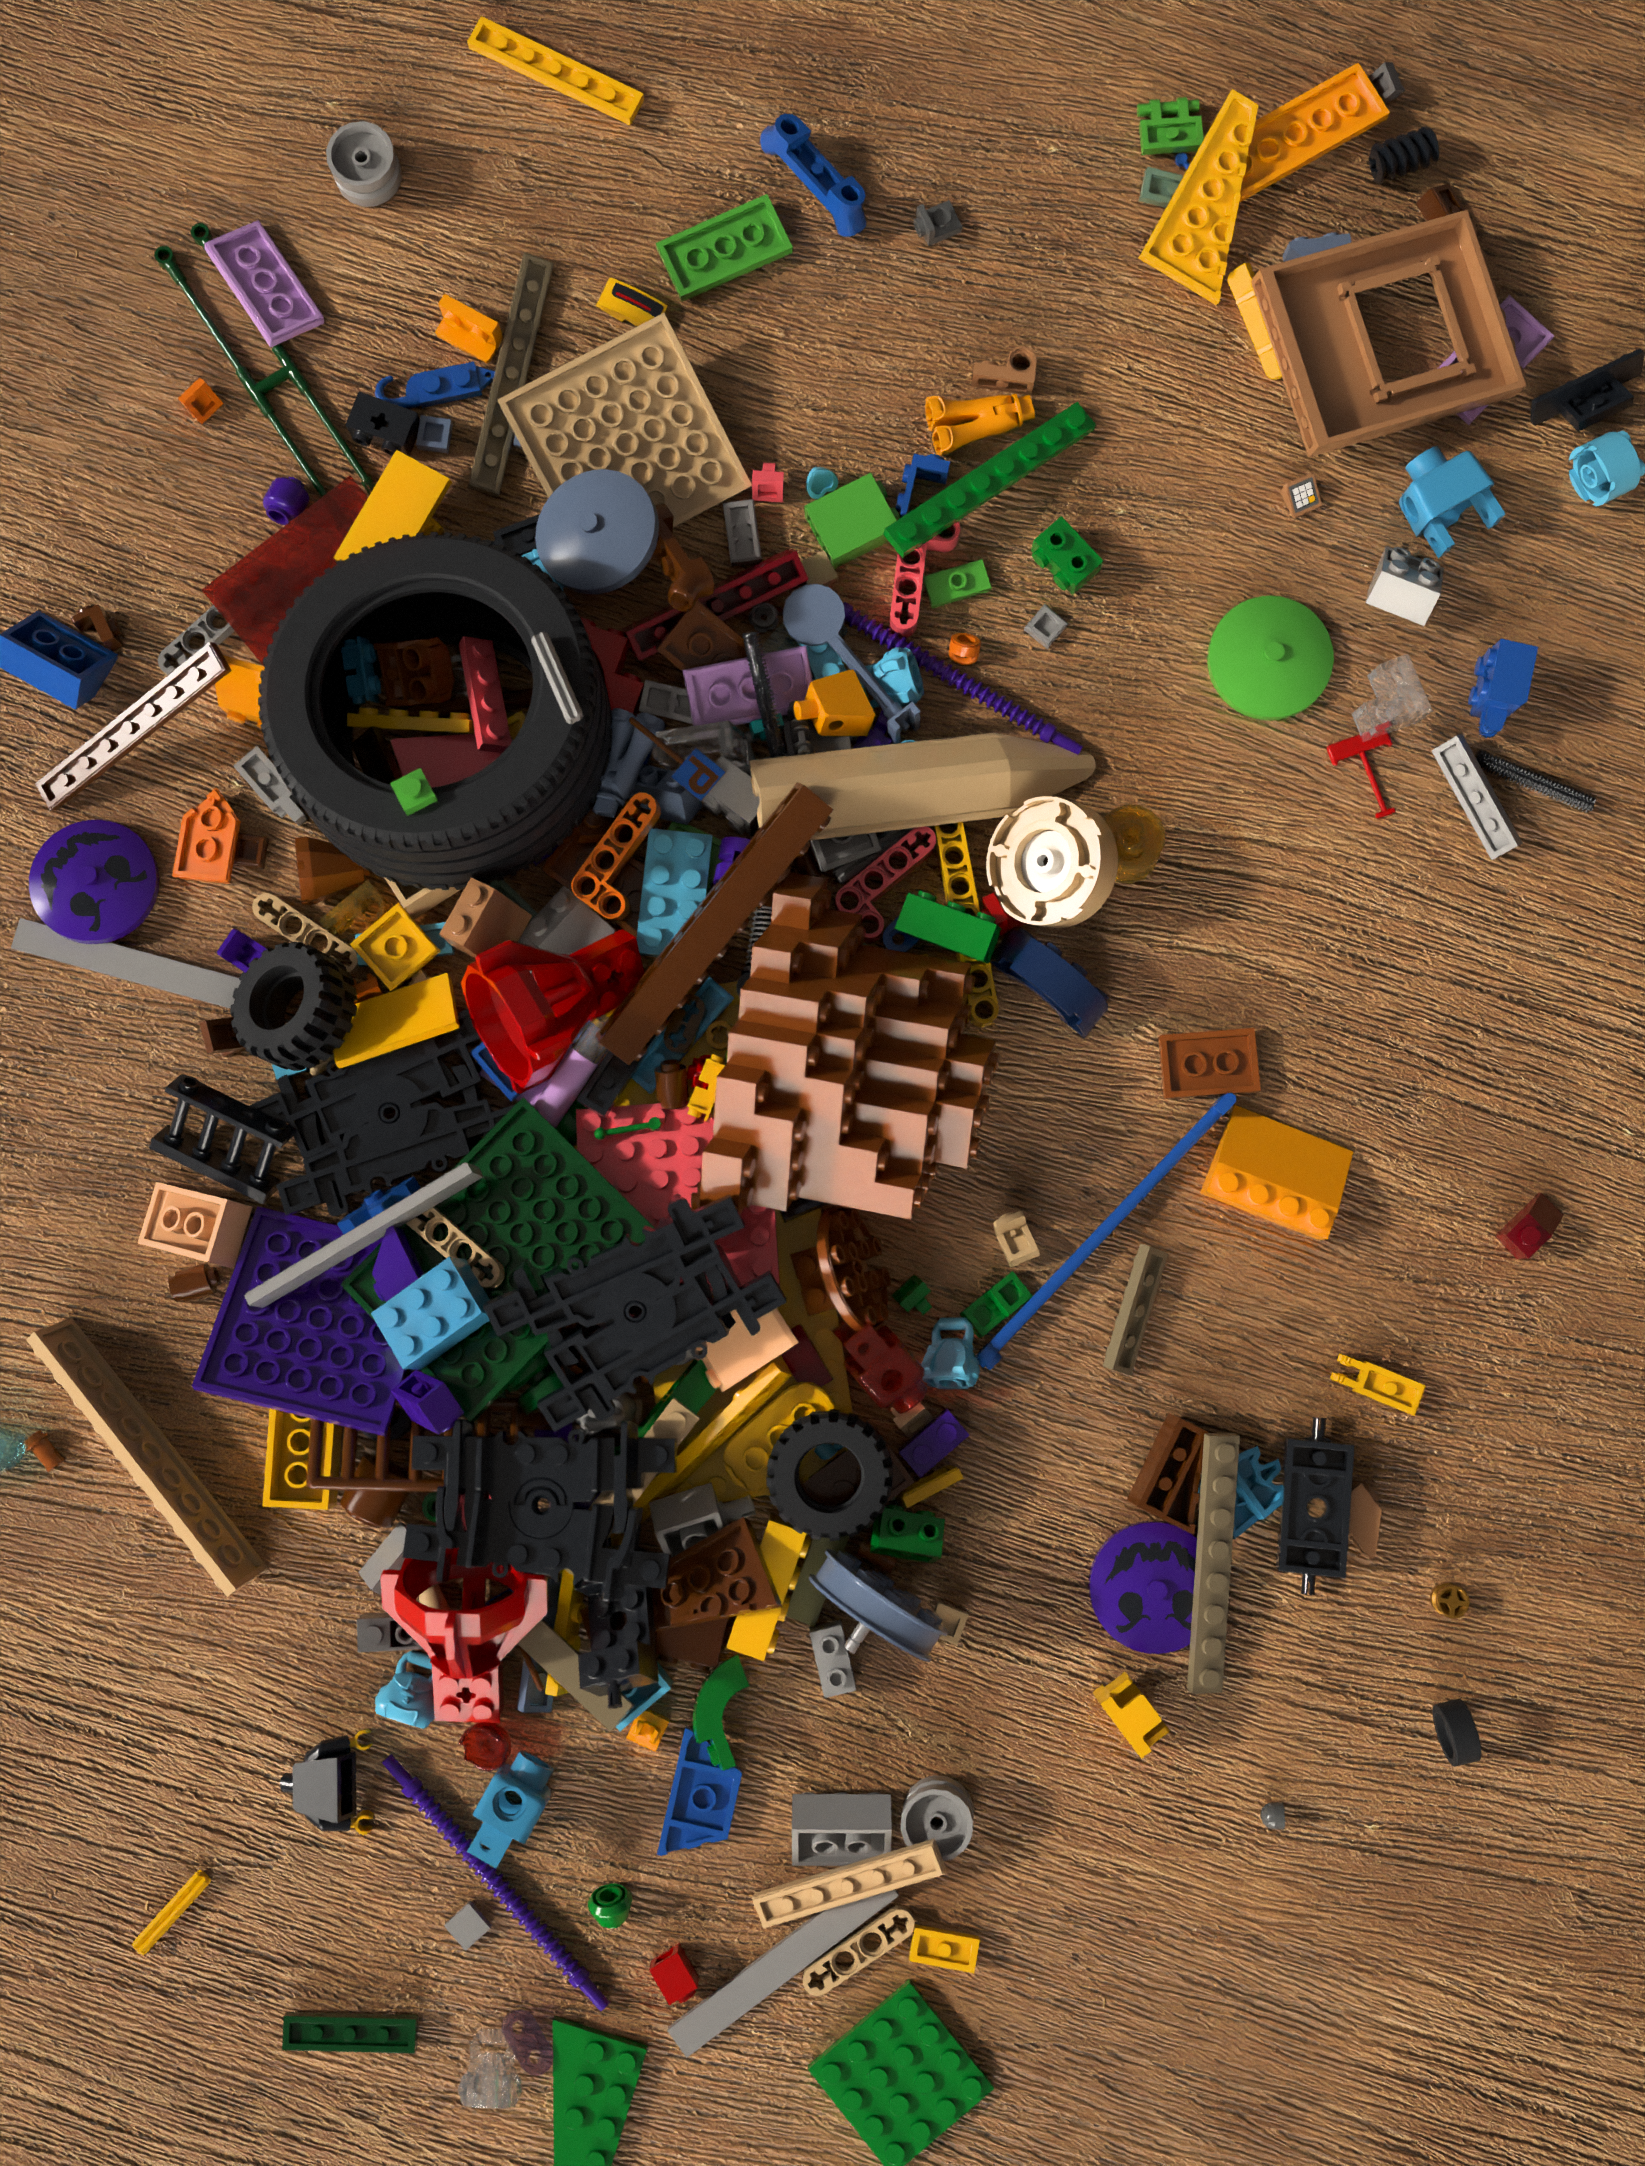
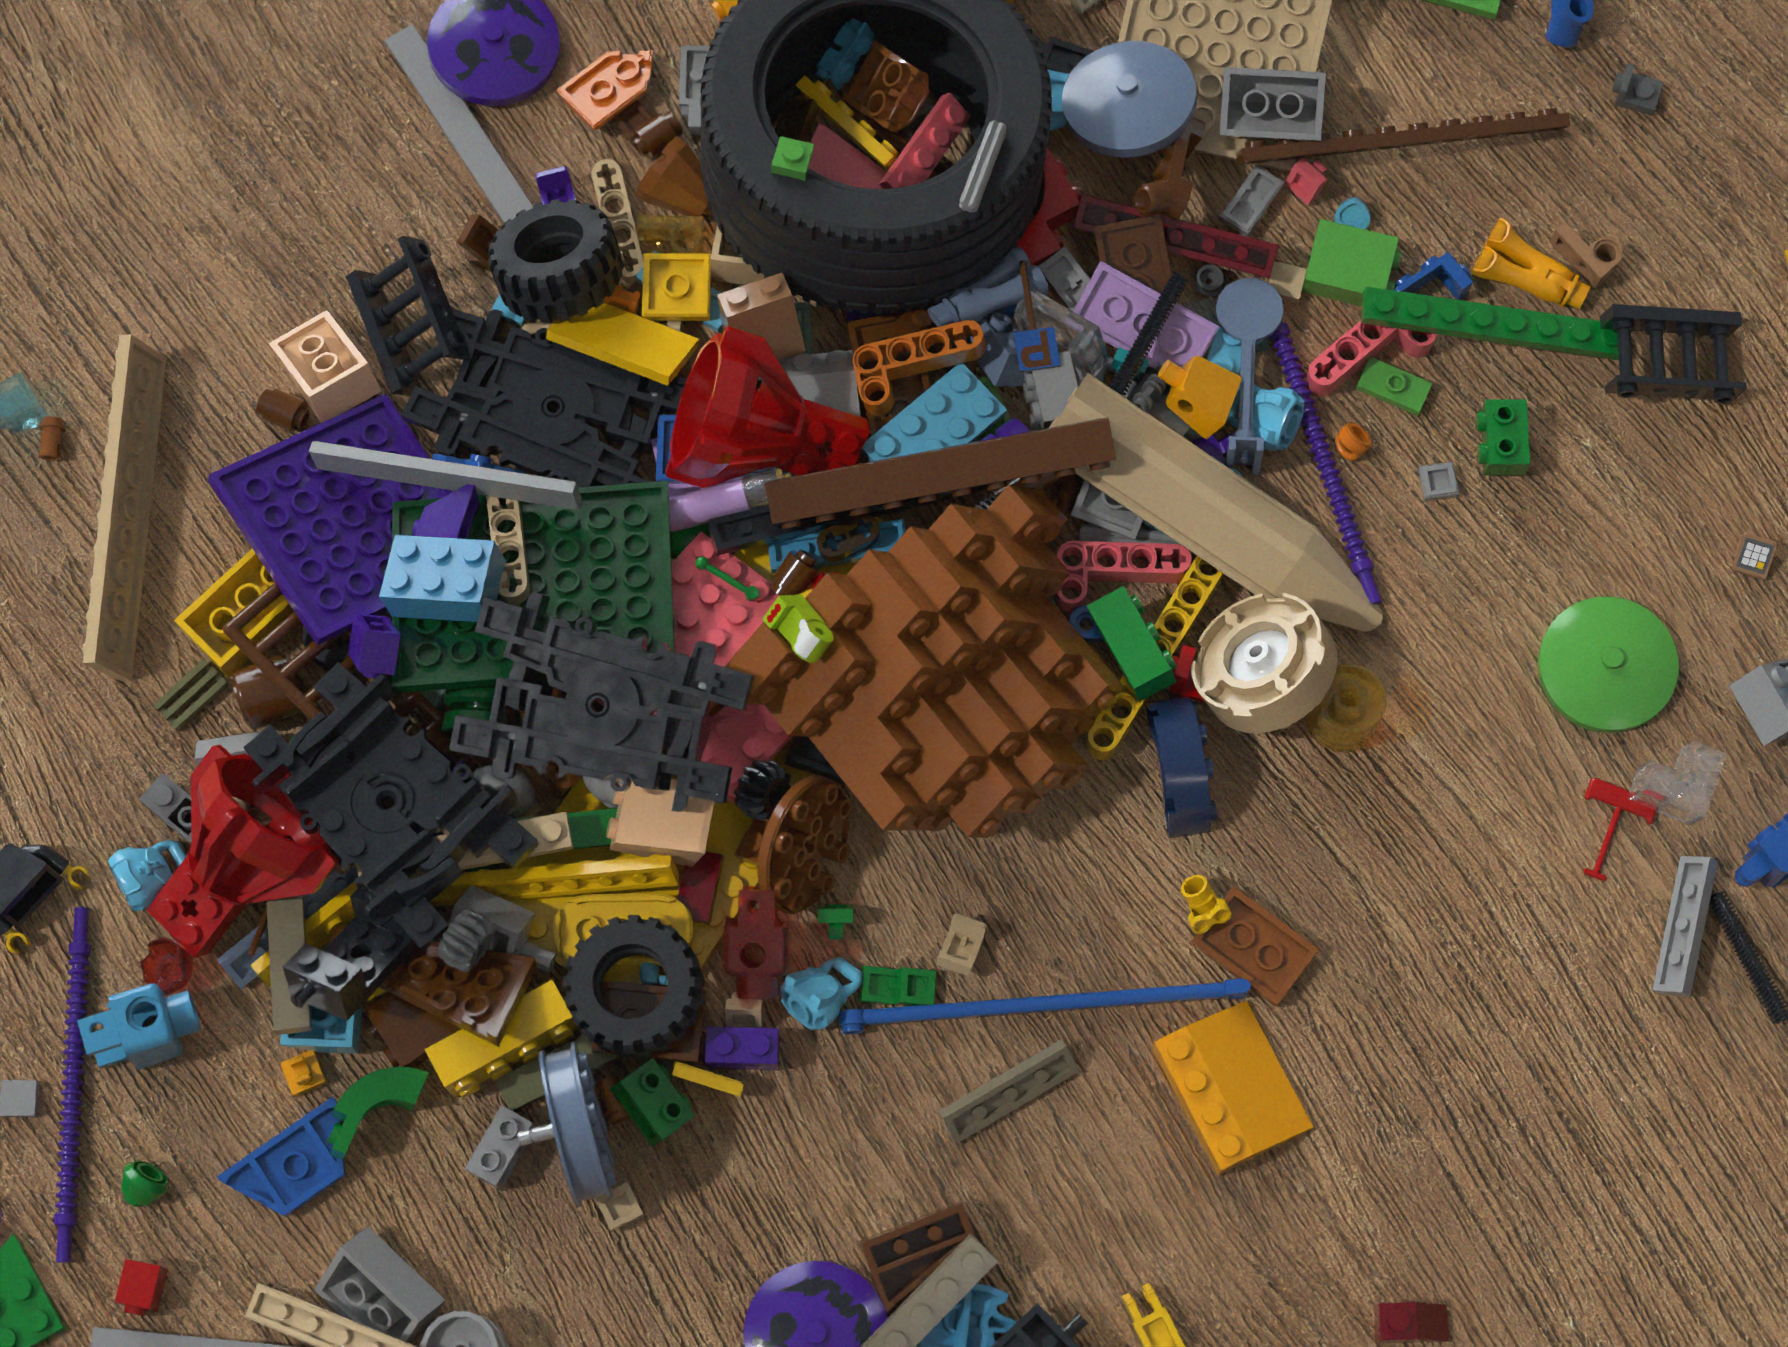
camera: 45 degrees right, 10 degrees down
(277, 847) = (656, 134): none -> reddish brown brick
(306, 1567) = (182, 685): none -> olive tile
(688, 1550) = (466, 940): none -> dark grey gear
(701, 448) = (1272, 103): none -> light grey slope
(732, 1131) = (800, 626): none -> lime leg
(793, 1258) = (761, 789): none -> black gear
(800, 403) = (1416, 135): none -> reddish brown plate
(1121, 367) = (1686, 324): none -> black fence
(1153, 1066) = (1203, 904): none -> yellow plate

